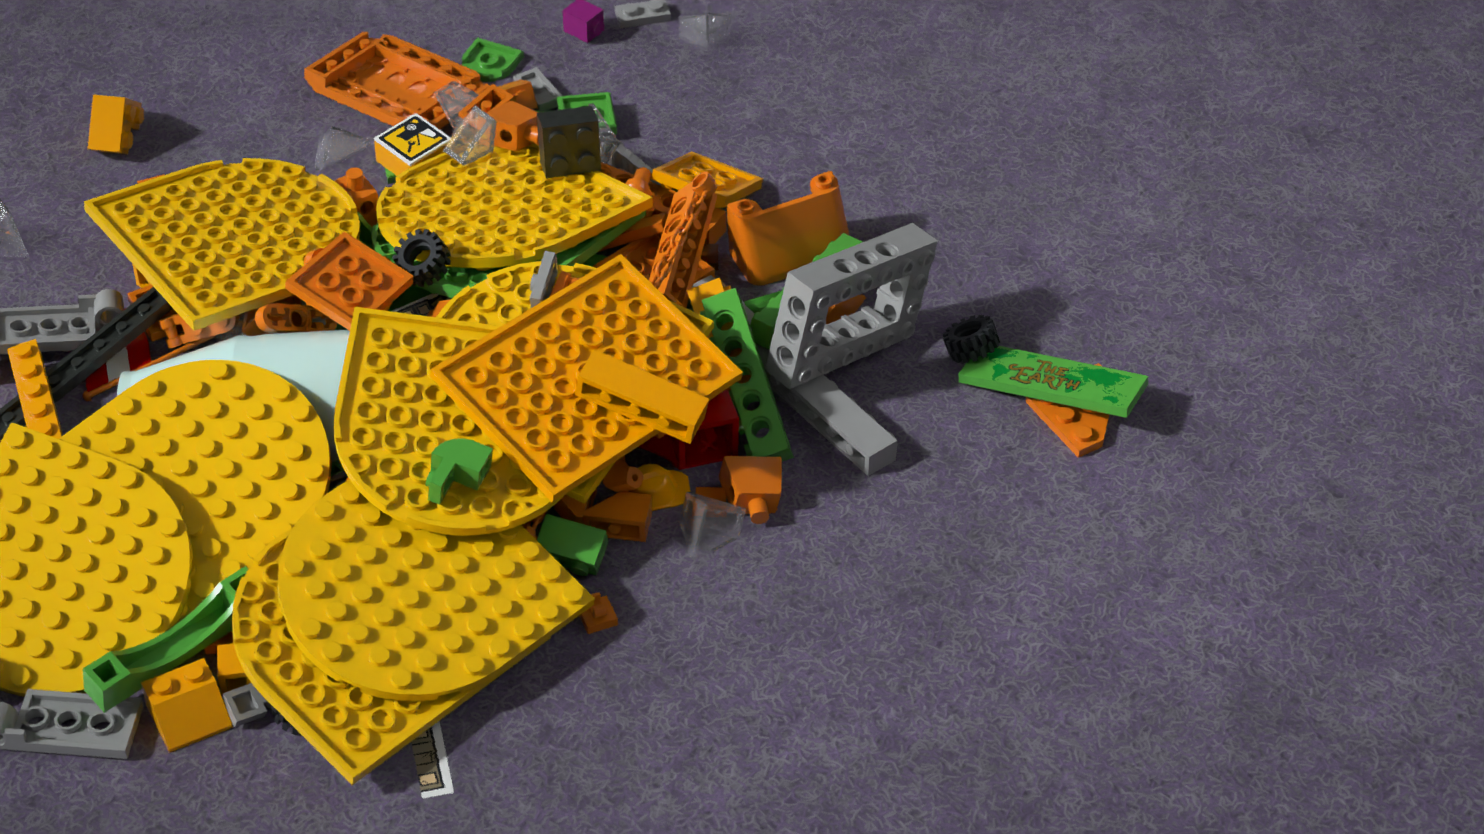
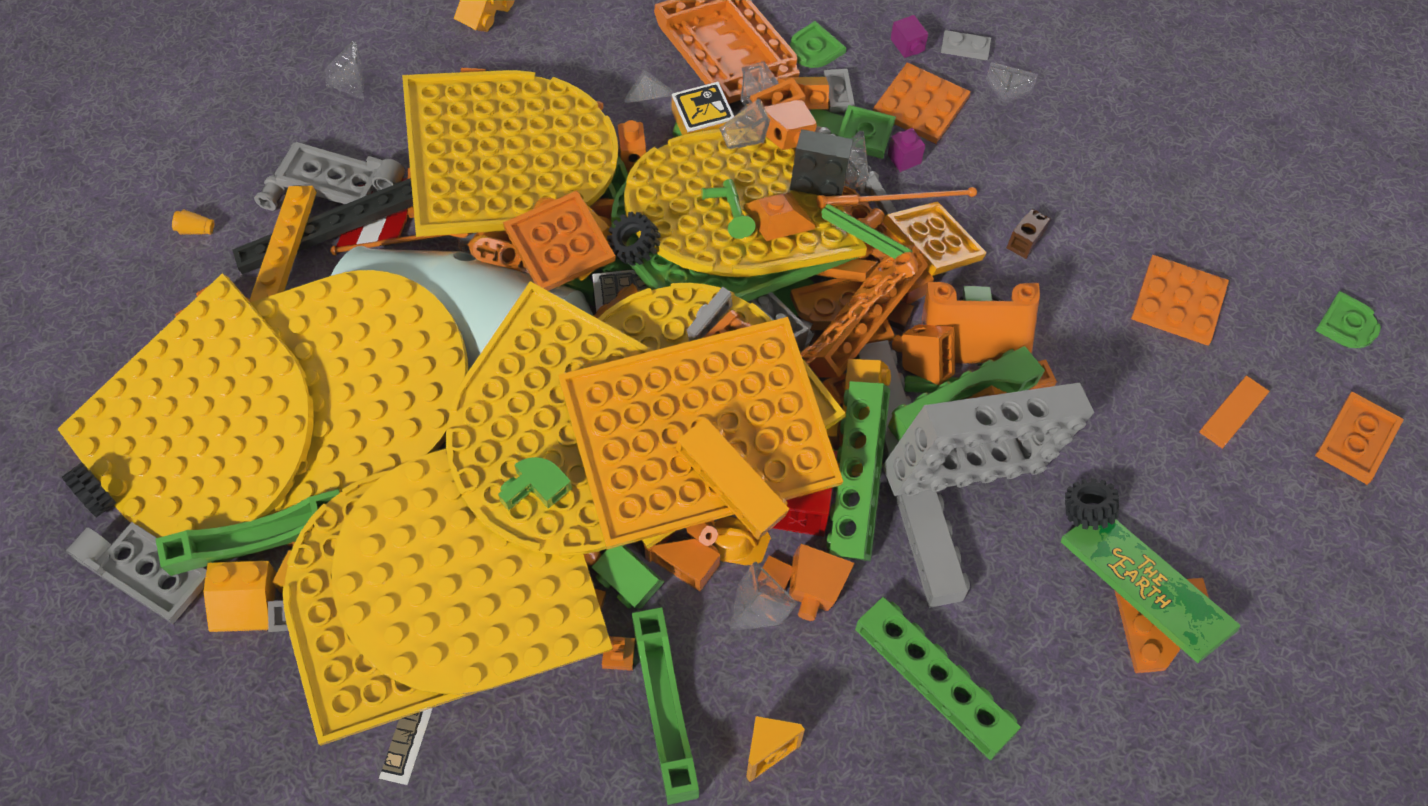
camera: 25 degrees right, 15 degrees up
(522, 213) = (740, 225): none -> bright green piece
(551, 196) = (779, 216): none -> orange slope
(587, 174) = (844, 200): none -> orange piece
(629, 74) = (922, 102): none -> orange plate
(636, 117) = (906, 149): none -> magenta brick
(642, 183) = (863, 231): none -> bright green axle
(701, 665) = (665, 707): none -> bright green arch
(754, 270) = (927, 352): none -> orange torso
(785, 616) = (771, 743): none -> light orange slope
(793, 150) = (1028, 233): none -> reddish brown leg
(905, 520) = (963, 716): none -> bright green brick
(964, 158) = (1180, 300): none -> orange plate
(1059, 230) = (1234, 412): none -> orange tile
(1124, 127) = (1349, 322): none -> bright green tile
(1178, 211) = (1359, 438): none -> orange plate

